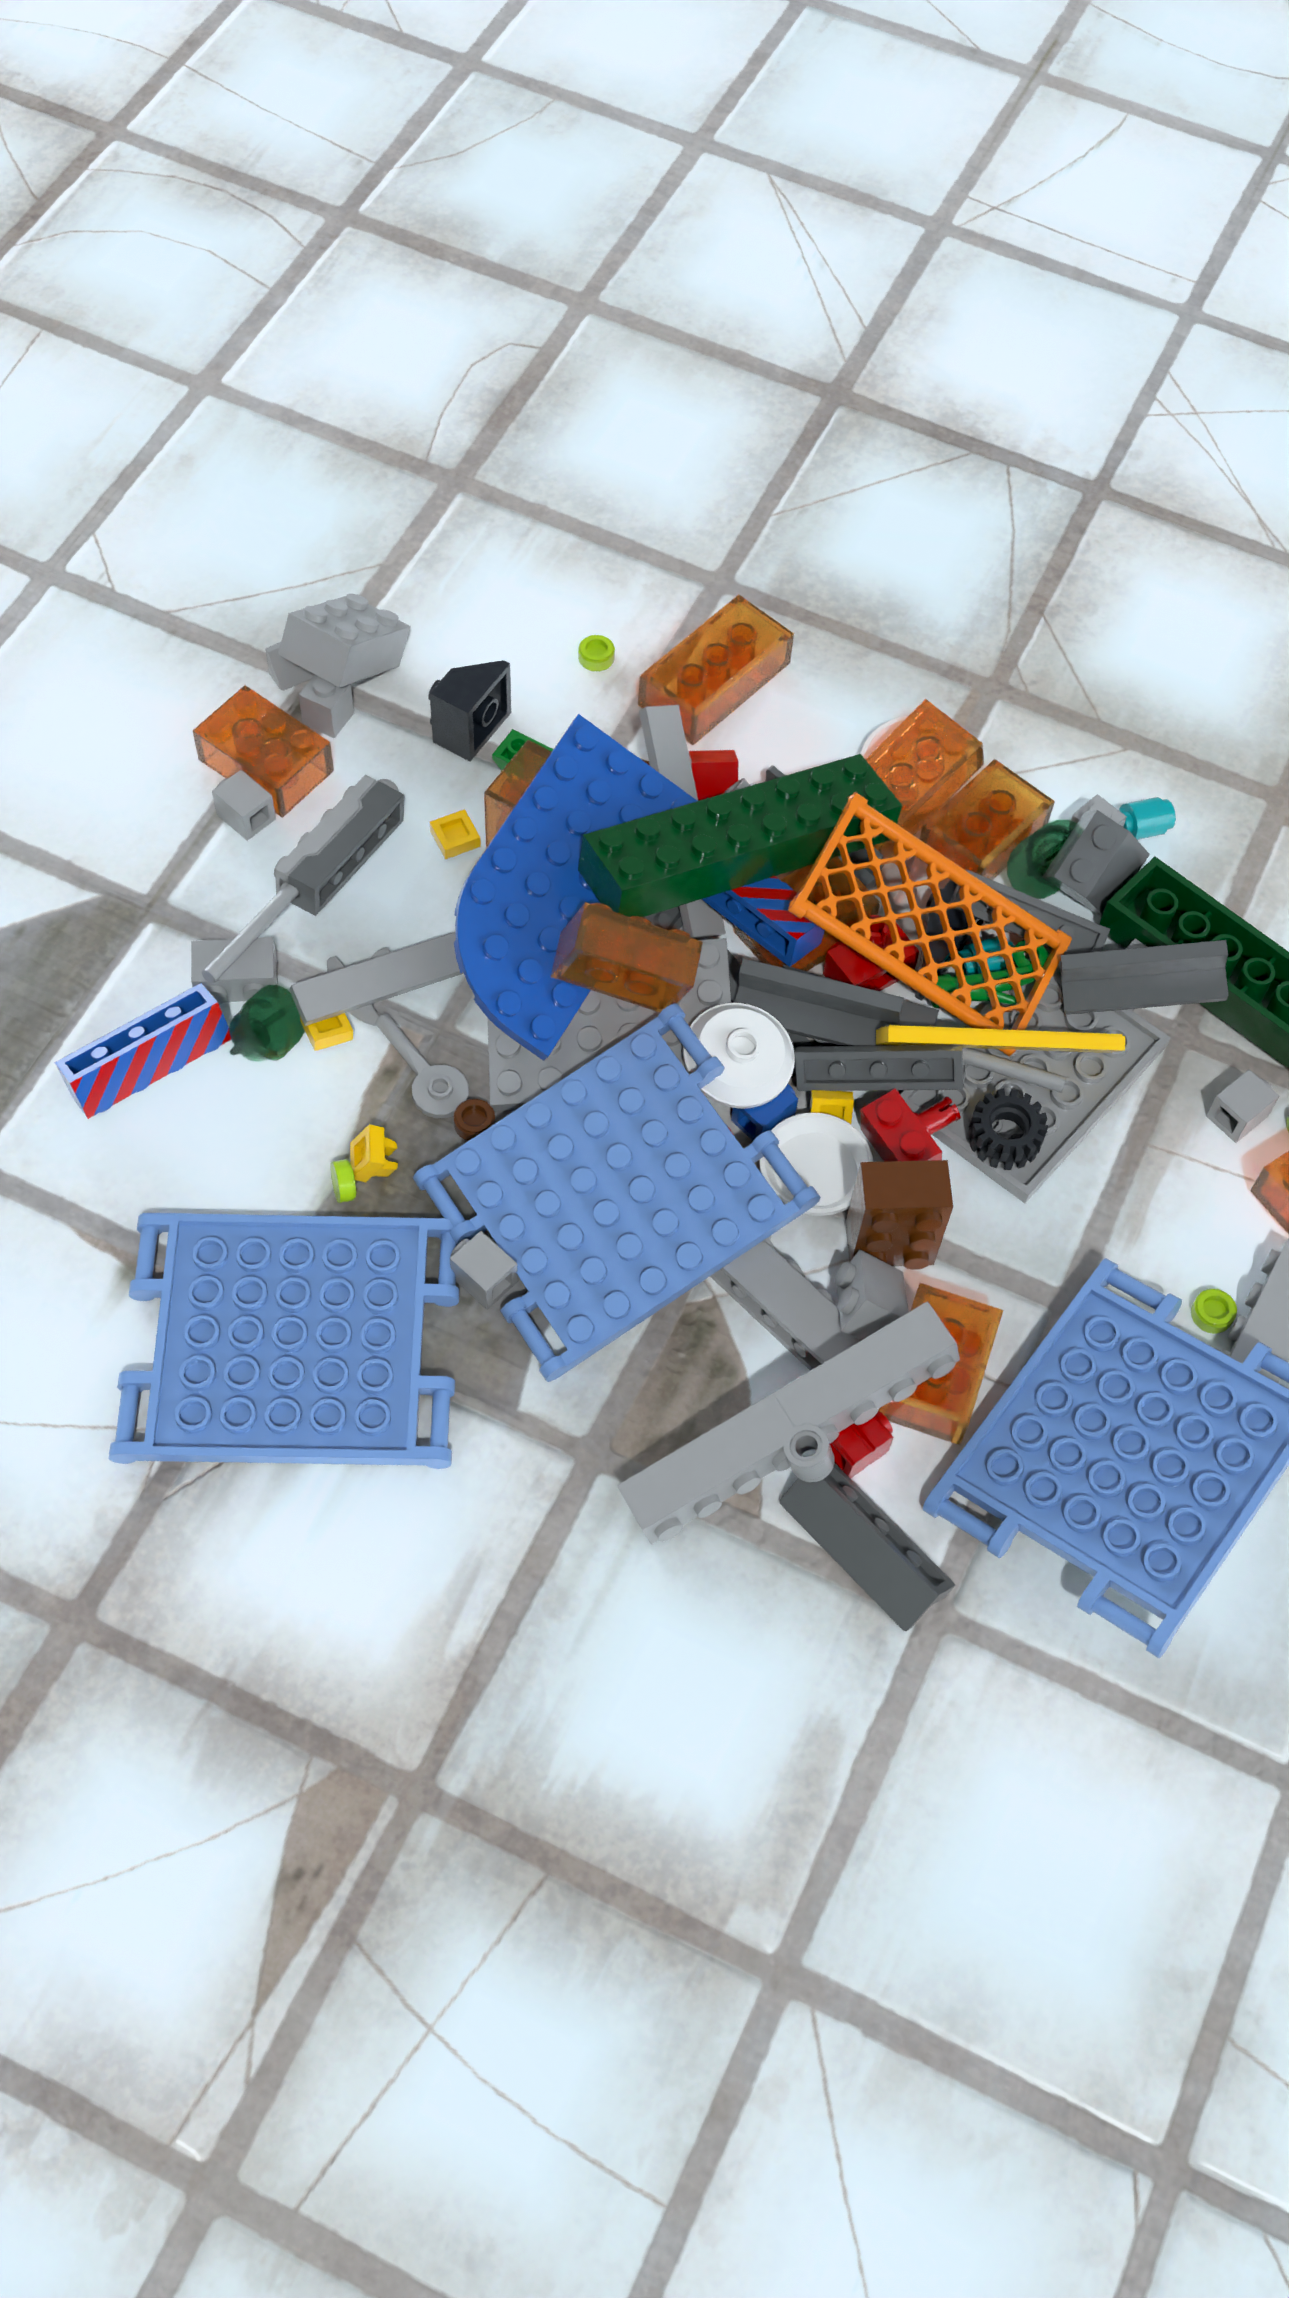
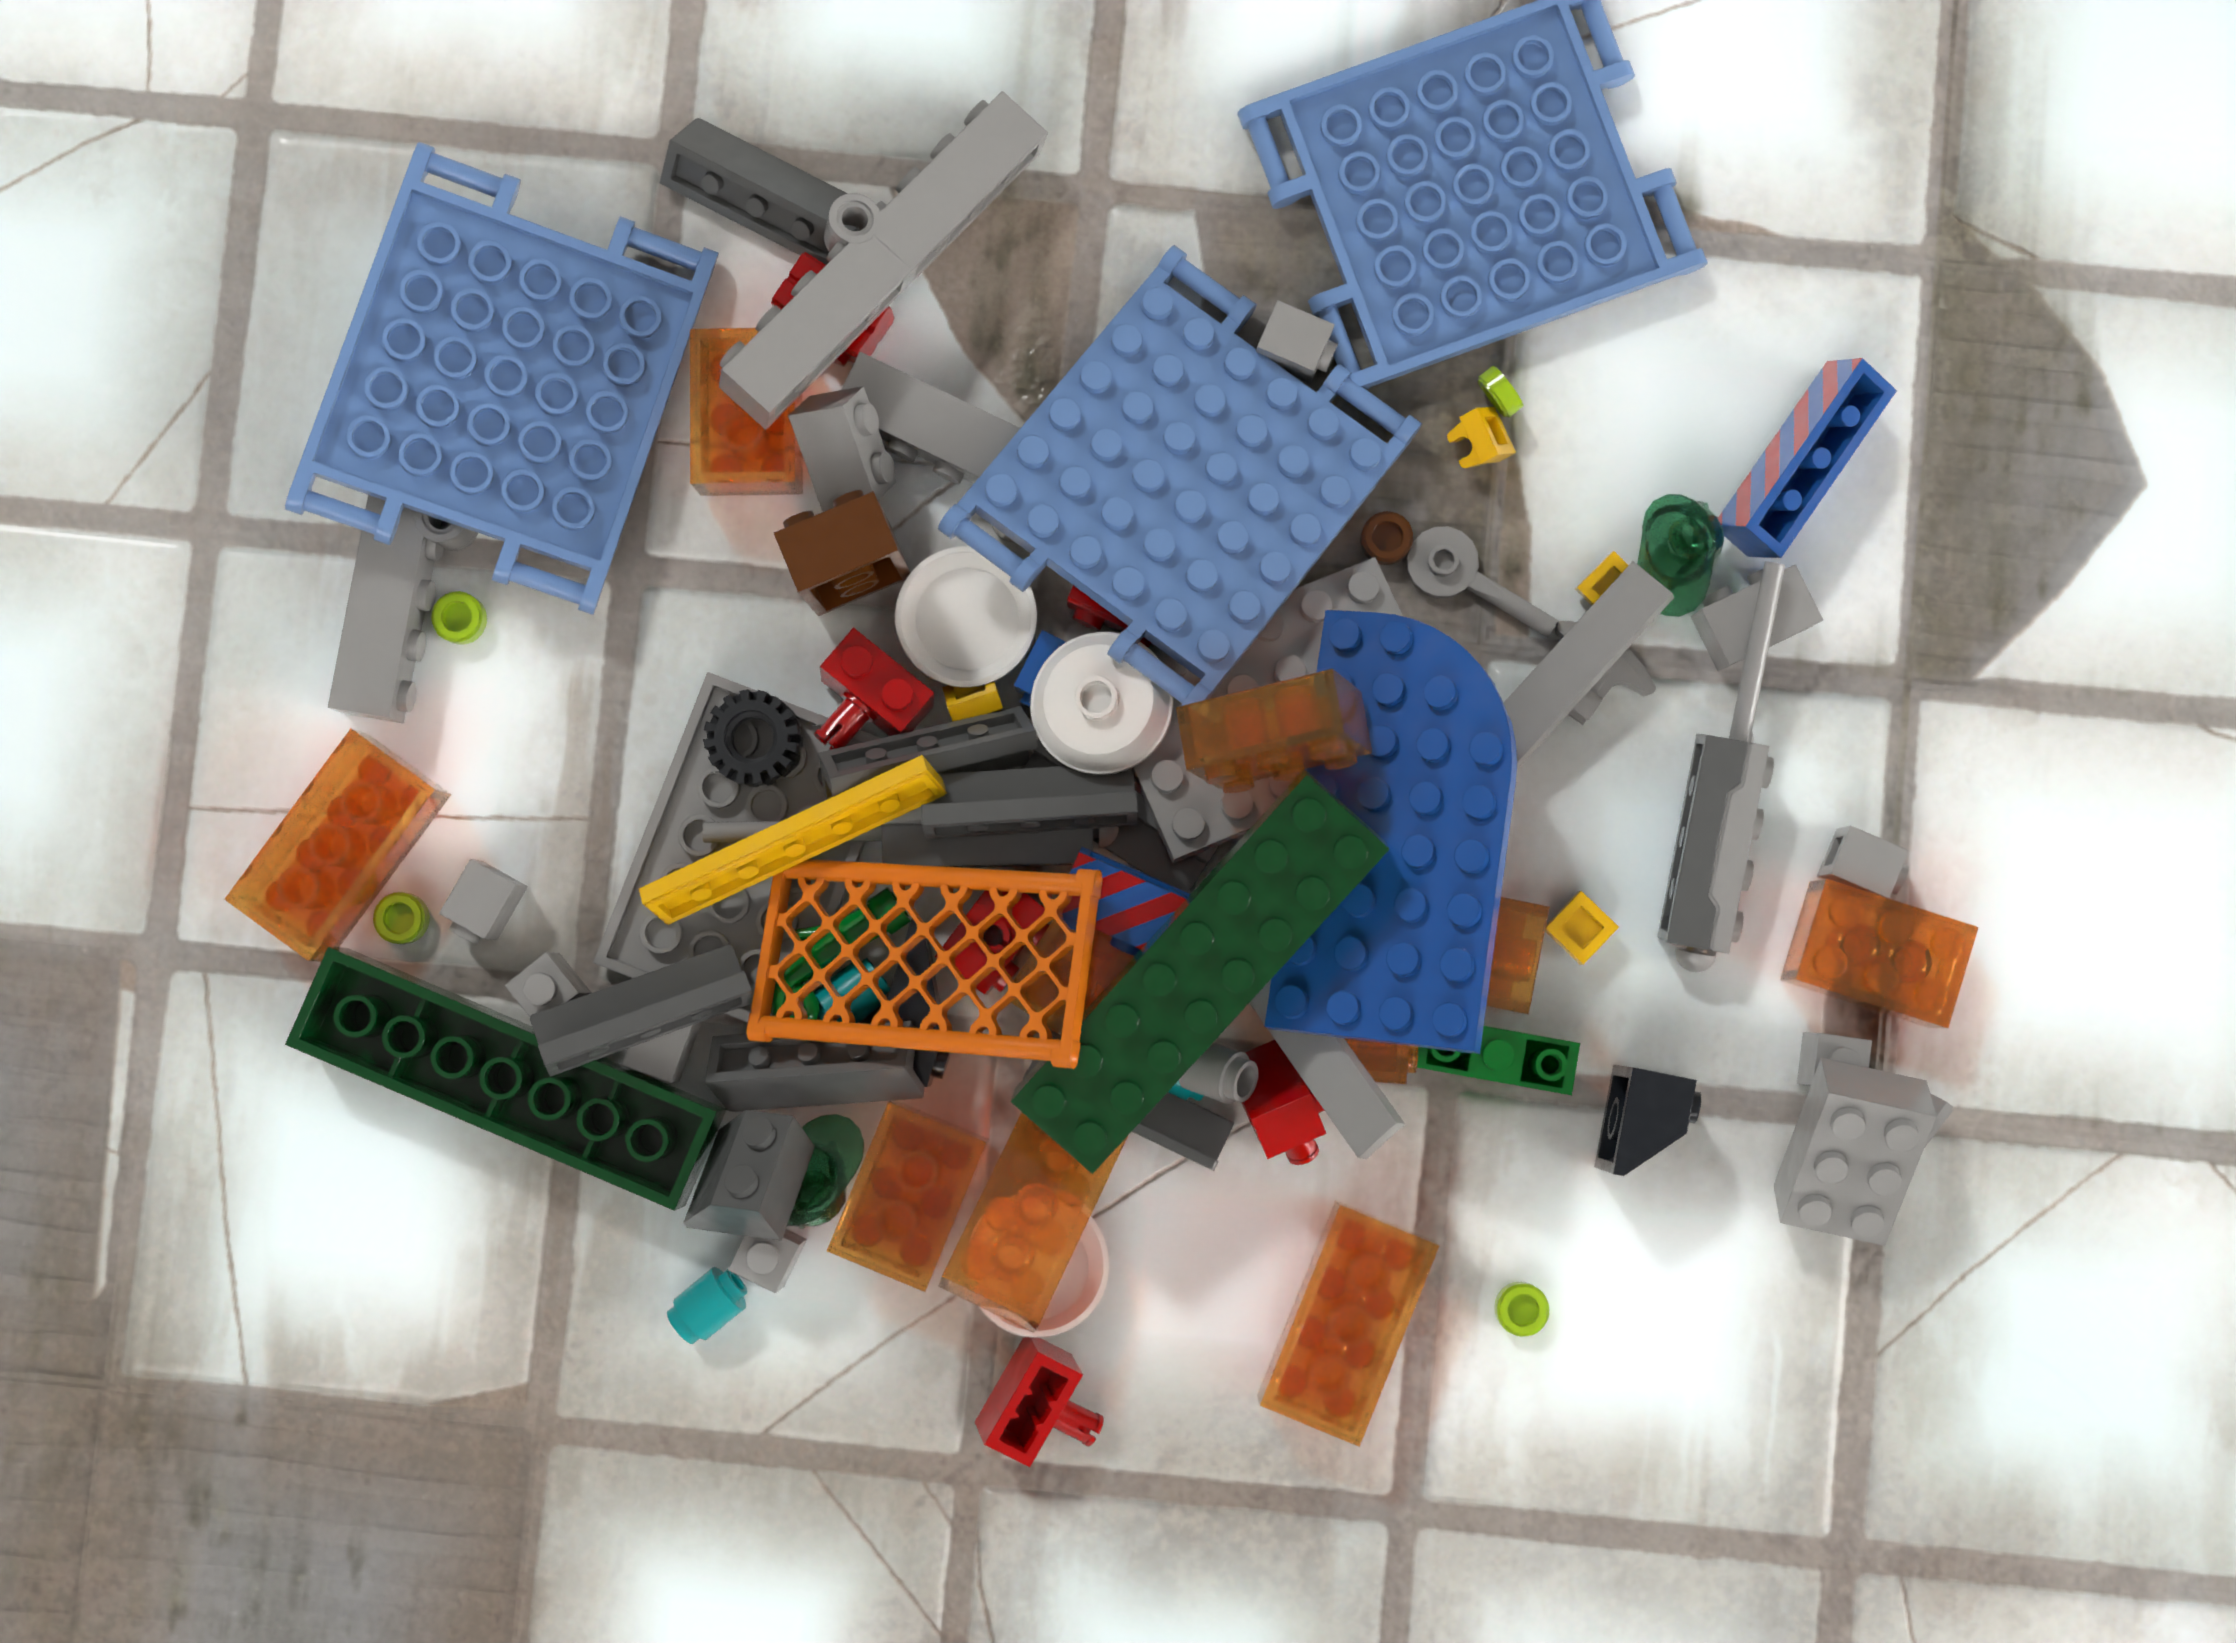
camera: 170 degrees right, 25 degrees up
(951, 686) = (1033, 1400): none -> red brick
(1208, 1032) = (546, 984): none -> light grey brick

